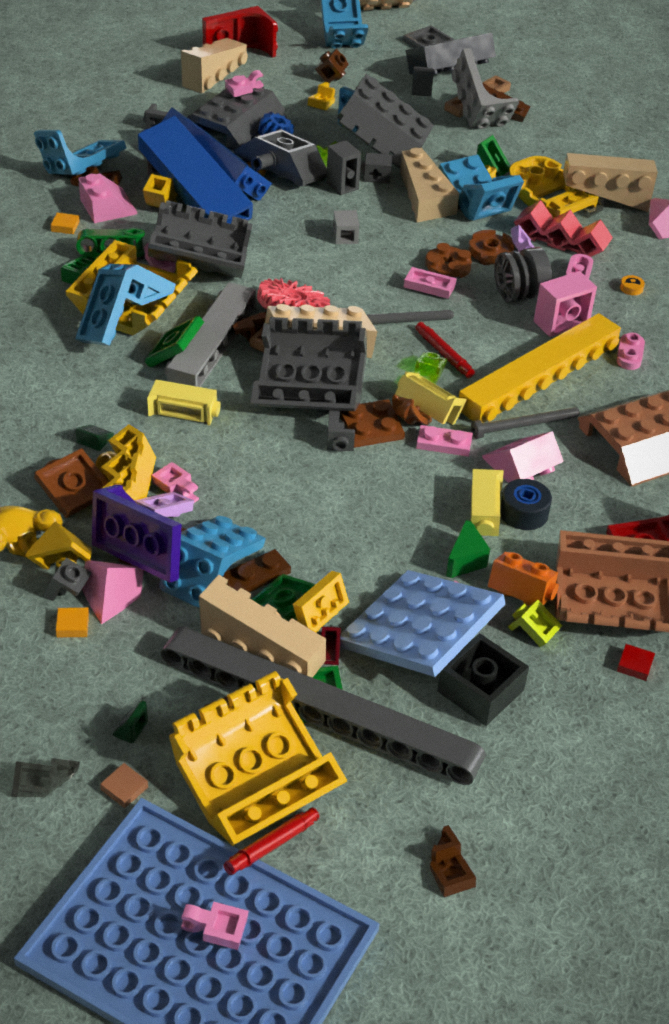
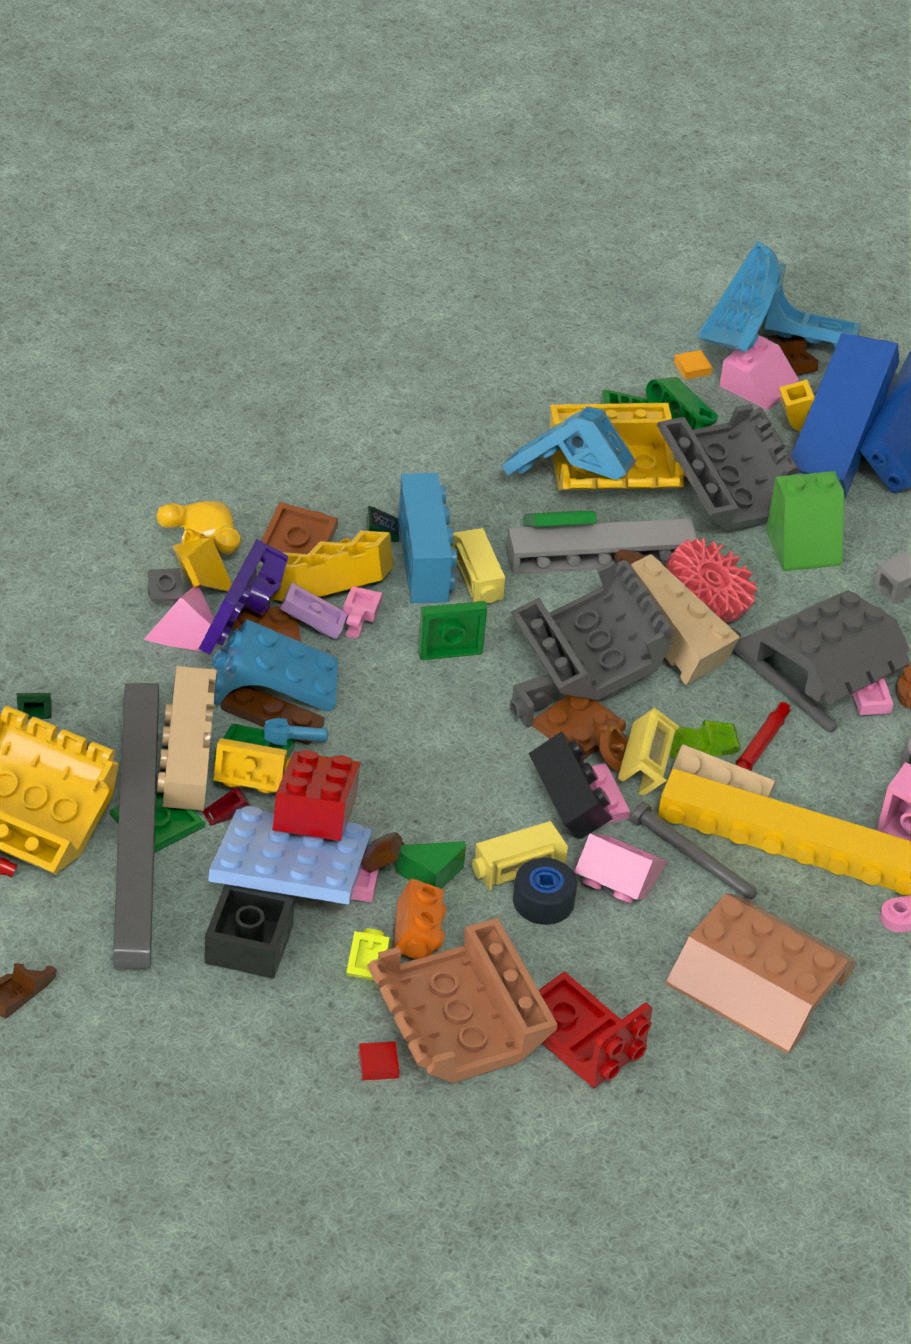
camera: 60 degrees right, 0 degrees up
(57, 163) = (744, 302): none -> dark azure plate
(72, 622) = (128, 617): light orange tile -> none
(158, 412) = (426, 538): none -> dark azure brick
(250, 438) = (452, 630): none -> green tile
(275, 235) = (807, 521): none -> bright green slope
(286, 574) = (278, 732): none -> dark azure bar
(379, 578) = (316, 795): none -> red brick
(388, 270) = (838, 641): none -> dark grey slope
(439, 445) = (571, 785): none -> black brick
(445, 566) = (382, 851): none -> reddish brown slope
(469, 374) = (721, 771): none -> tan plate

